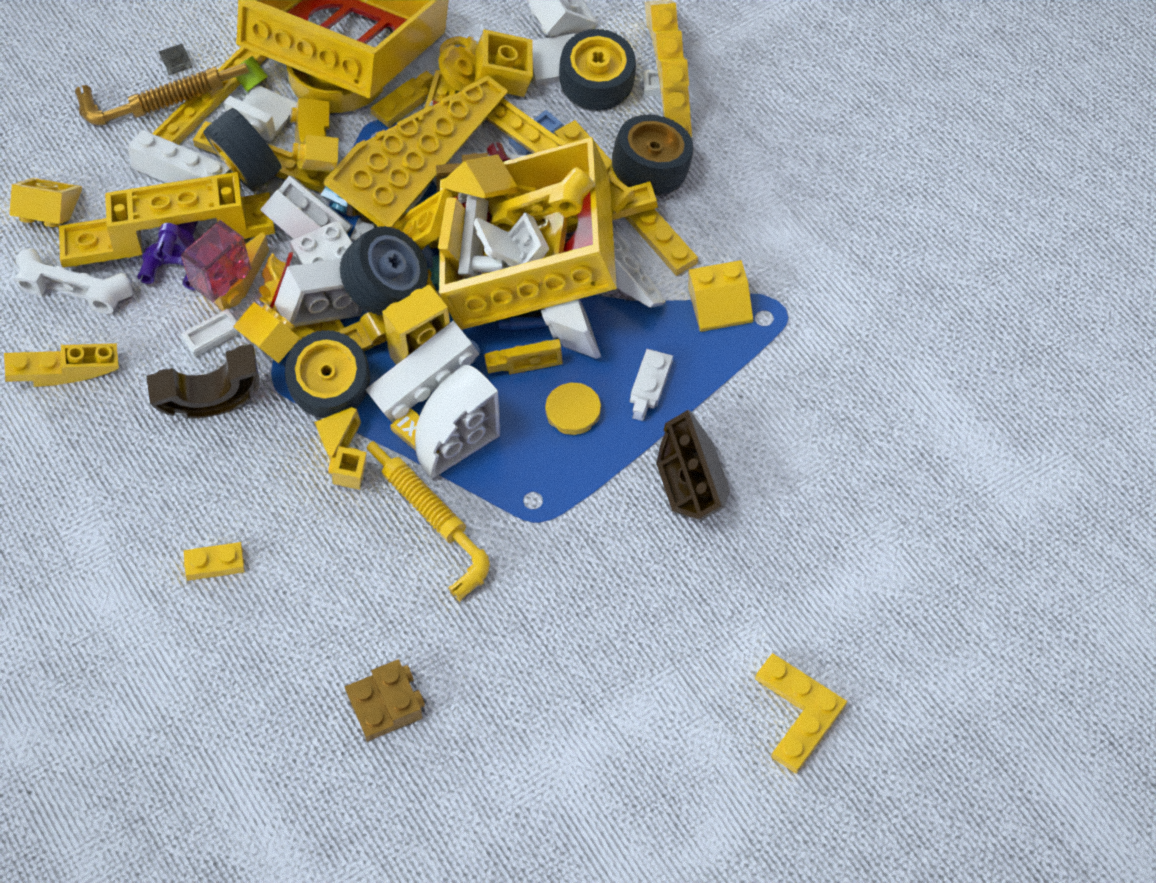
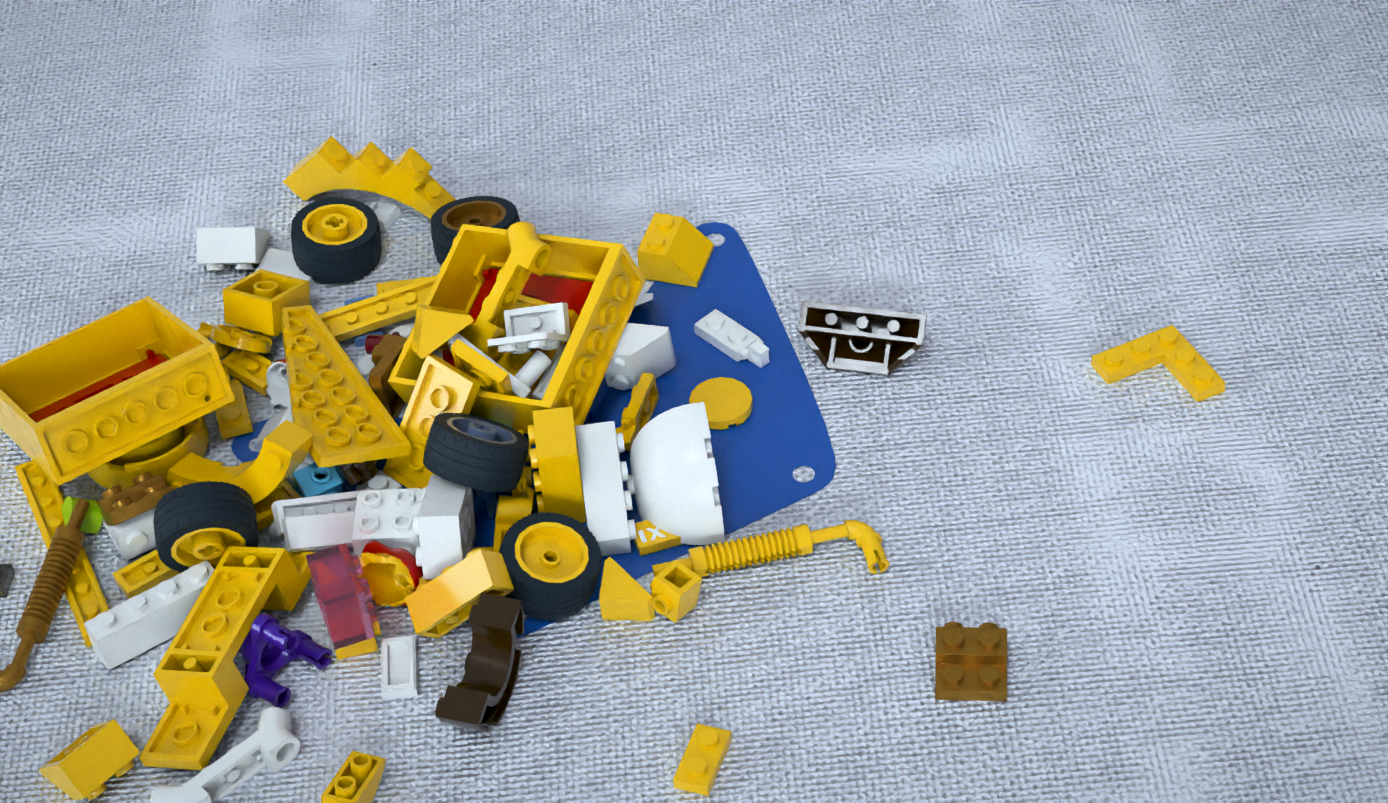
camera: 60 degrees left, 15 degrees down
(263, 95) = (124, 504): none -> pearl gold plate

